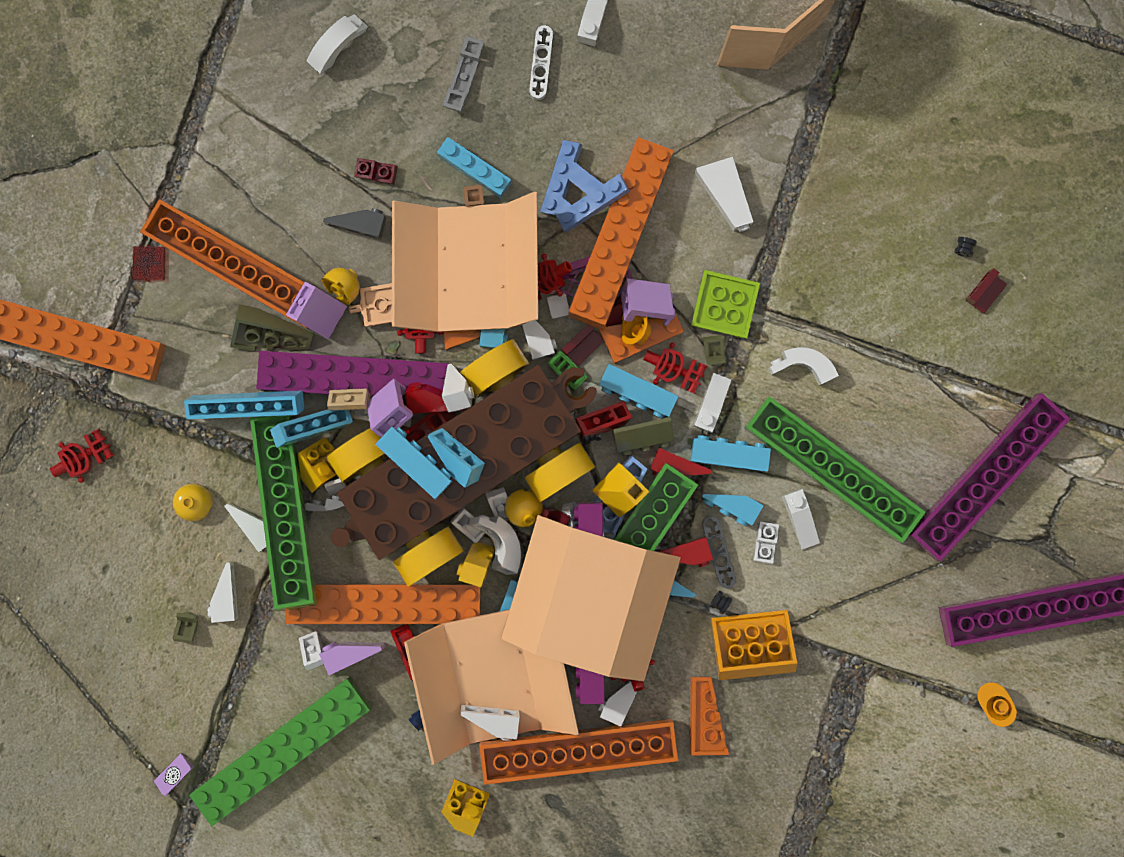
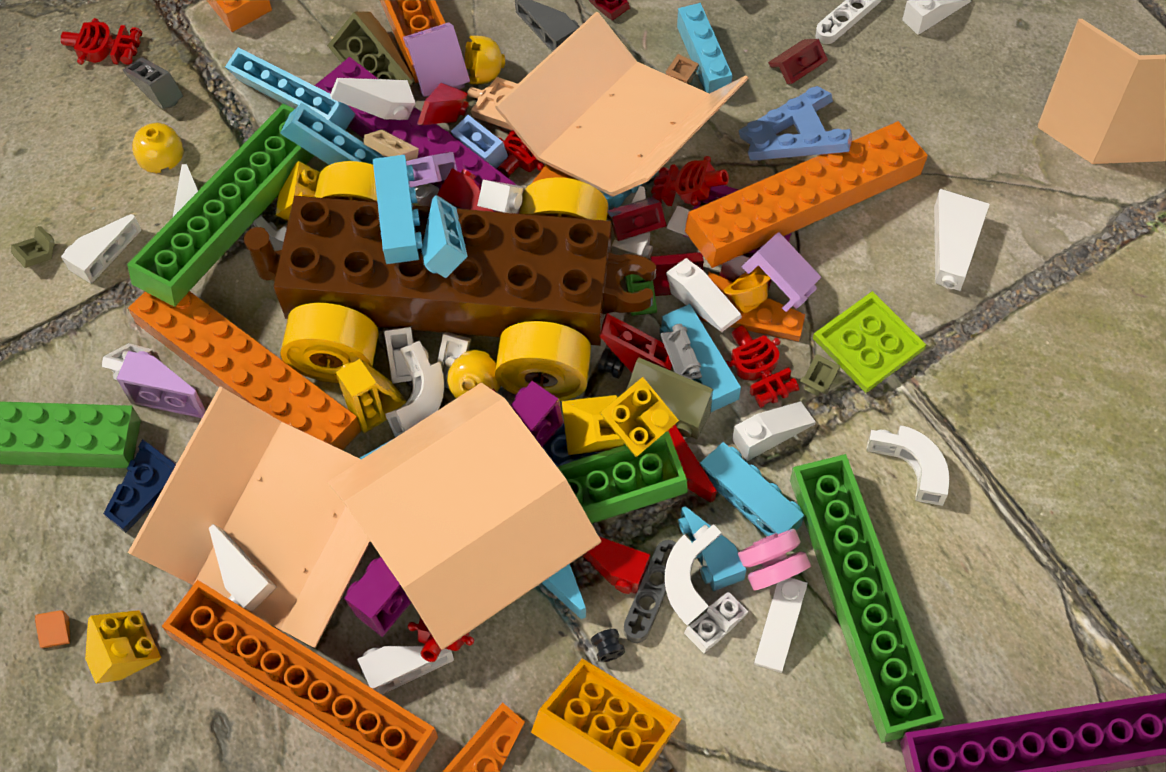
camera: 40 degrees right, 25 degrees down
(144, 460) = (154, 82): none -> dark grey slope
(316, 375) = (376, 96): none -> white slope
(350, 340) = (443, 106): none -> red slope
(390, 710) = (140, 487): none -> dark blue wing
(393, 348) = (480, 141): none -> light blue brick
(419, 826) = (52, 628): none -> orange slope
(534, 334) = (637, 218): none -> dark red panel
(536, 127) = (800, 59): none -> dark red panel
(613, 353) = (695, 288): none -> white slope
(632, 404) = (681, 353): none -> light grey hinge
(652, 476) = (639, 416): none -> yellow slope
(741, 546) = (678, 582): none -> white arch
(777, 491) = (775, 562): none -> bright pink wheel

